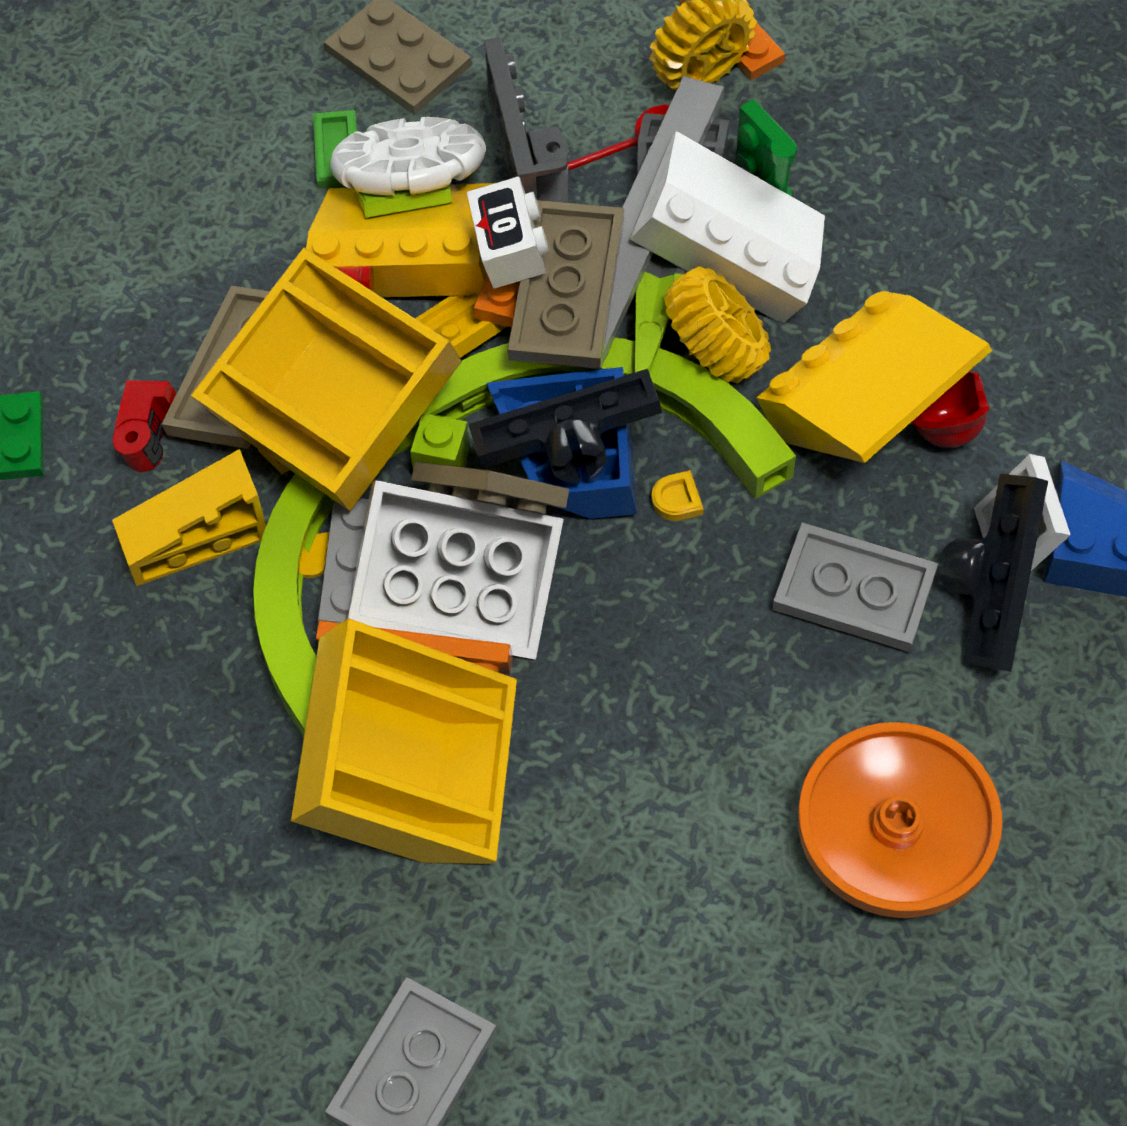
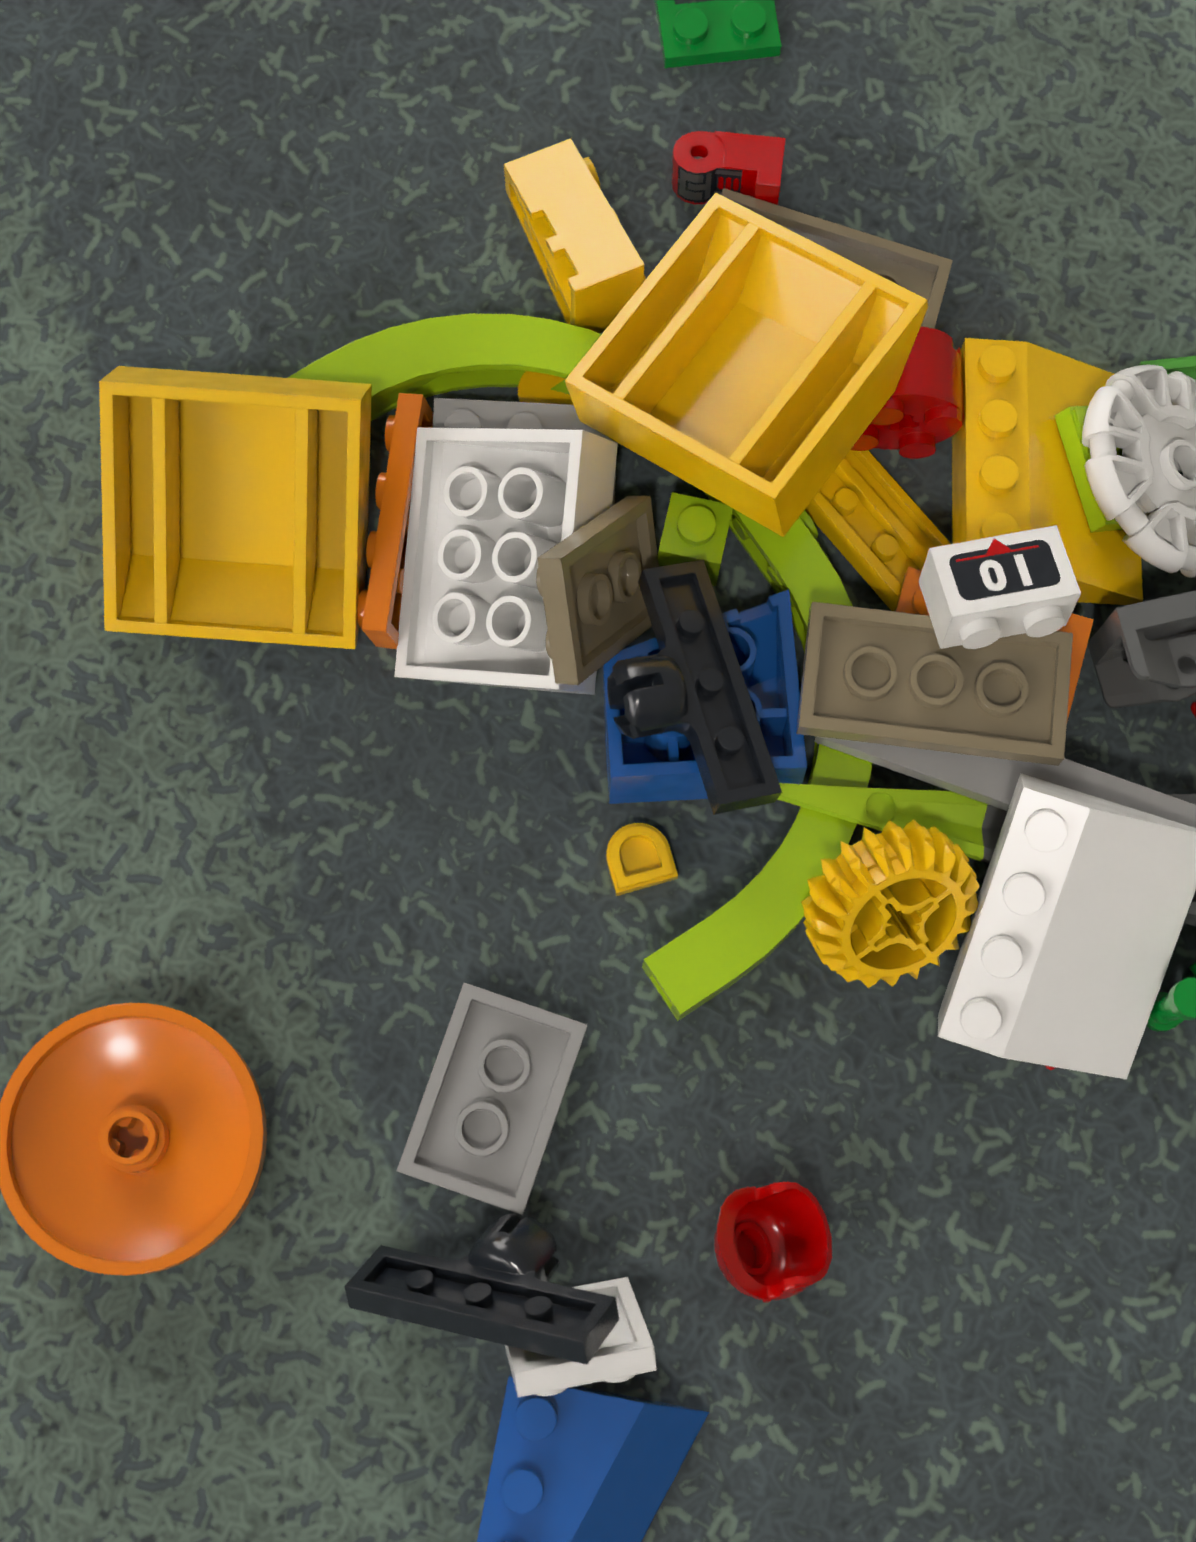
camera: 85 degrees right, 15 degrees up
(870, 377) = (805, 1129): yellow slope -> none

